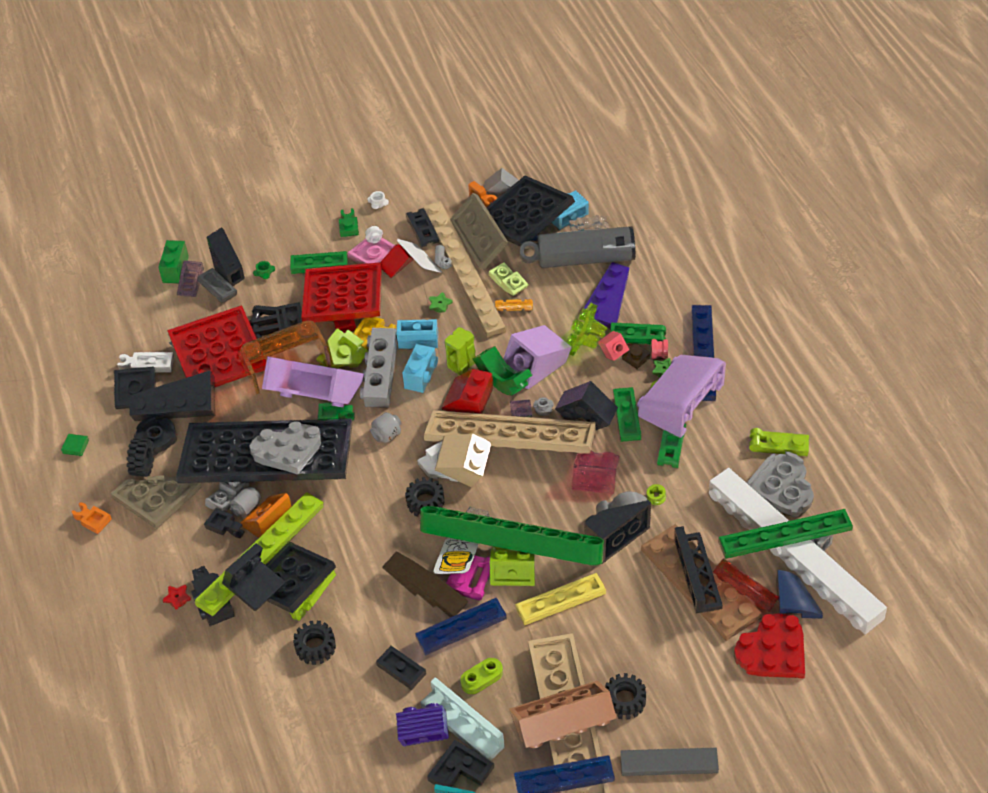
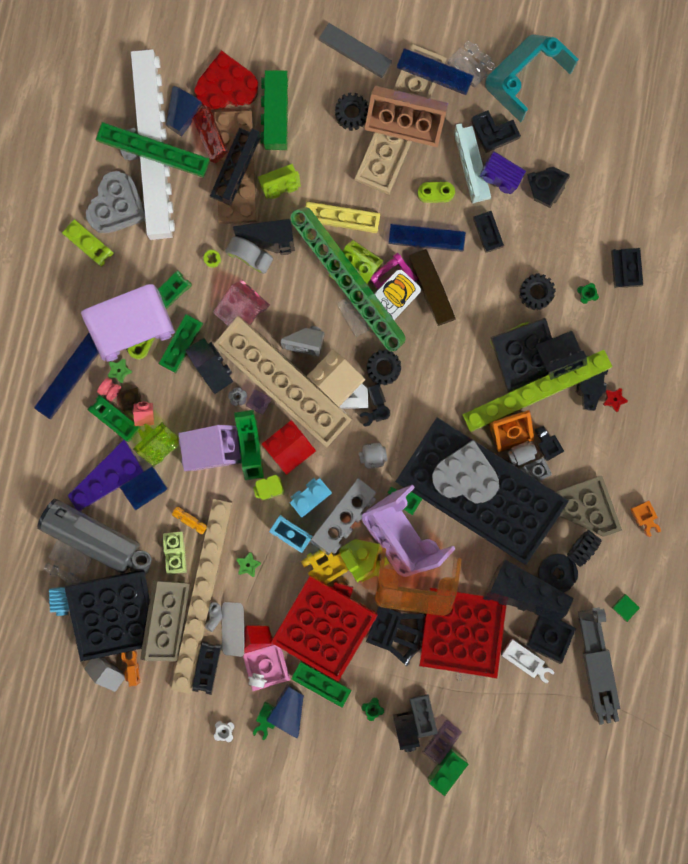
camera: 150 degrees left, 35 degrees up
(80, 393) = (598, 665): none -> dark grey hinge
(230, 718) = (627, 268): none -> black plate
(259, 667) = (588, 288): none -> green plate
(334, 233) = (288, 711): none -> dark blue slope
(366, 746) = (547, 185): none -> black plate
(403, 464) = (378, 399): none -> black bar
(513, 468) = (305, 341): none -> light grey slope
(569, 302) = (144, 488): none -> clear blue plate
(643, 587) = (279, 181): none -> lime bracket
(702, 649) = (275, 110): none -> green brick

